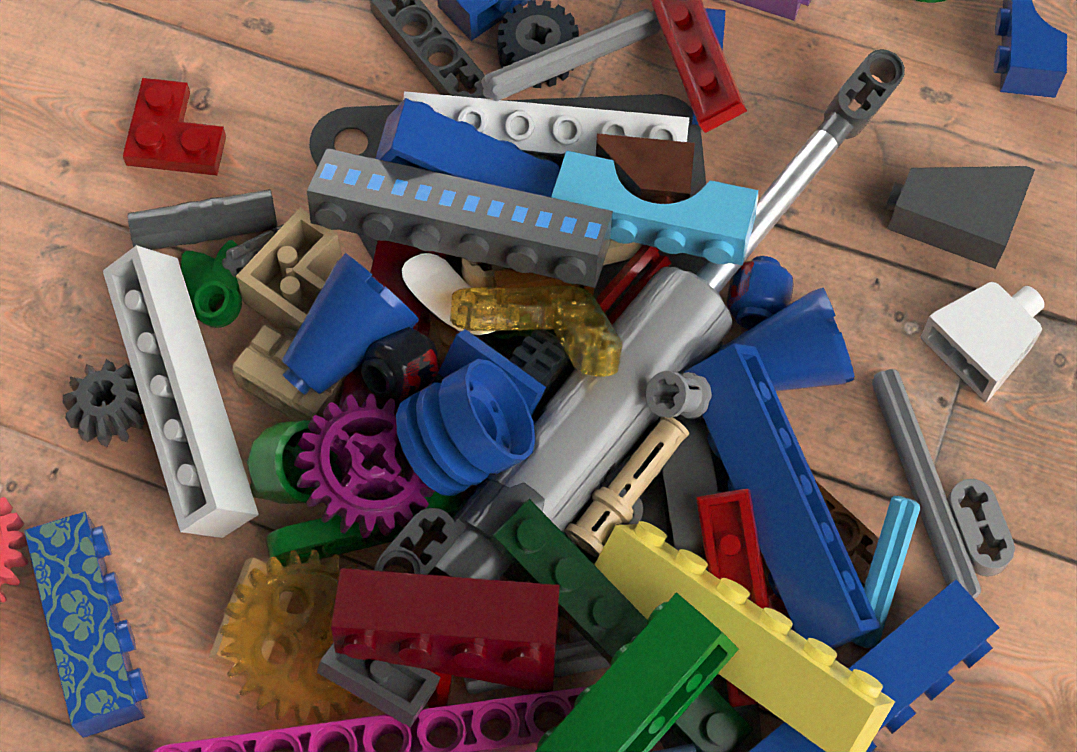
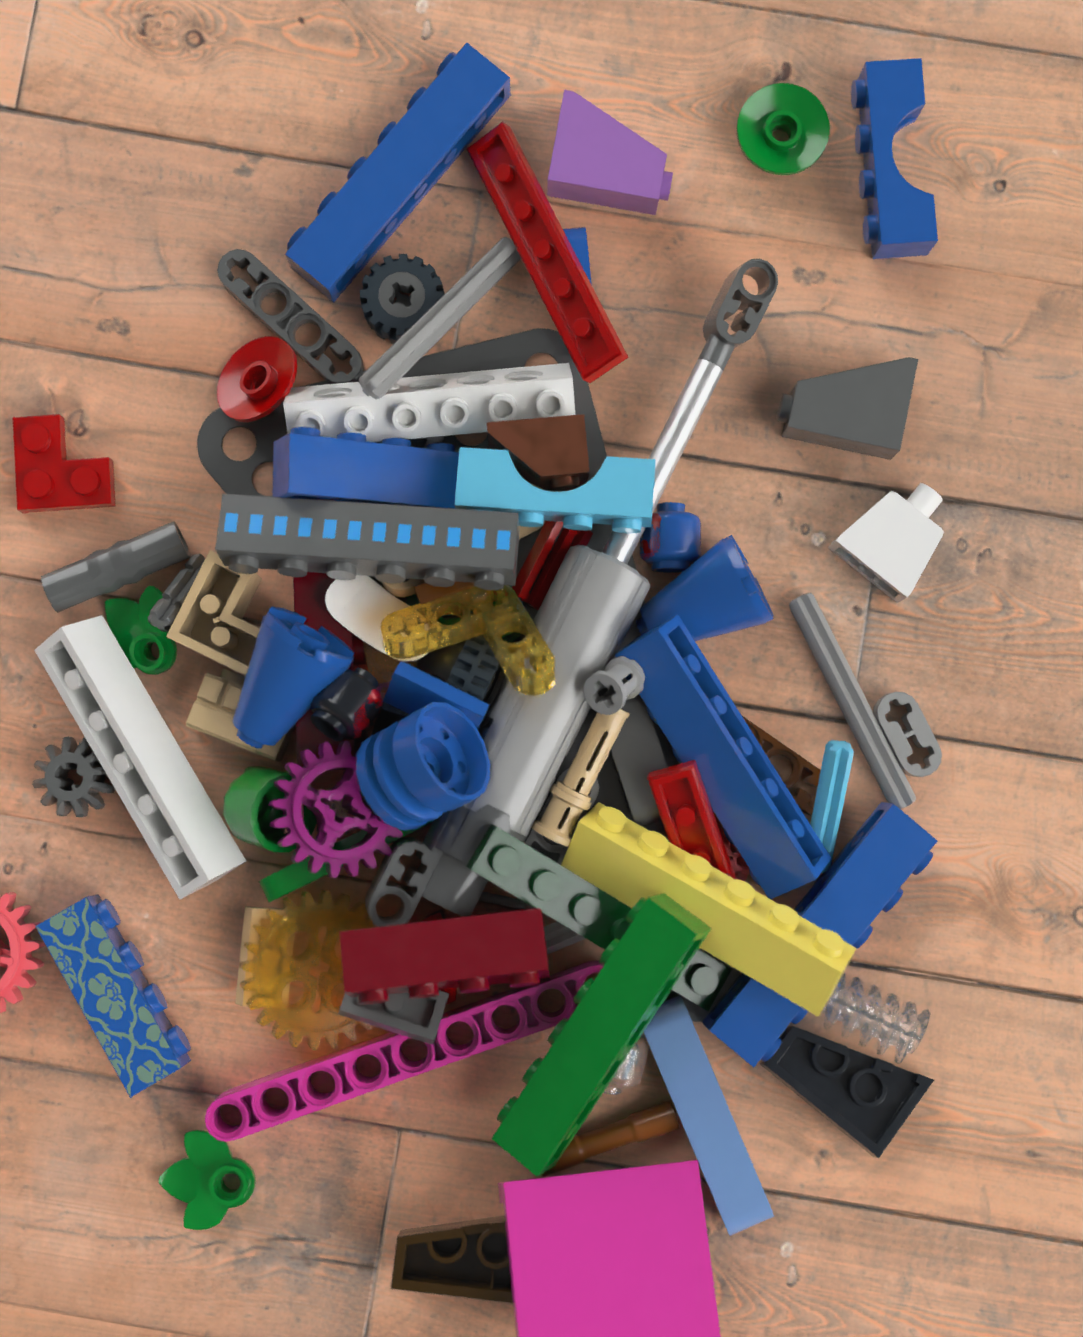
camera: 15 degrees left, 20 degrees up
(383, 83) = (256, 379): none -> red dish

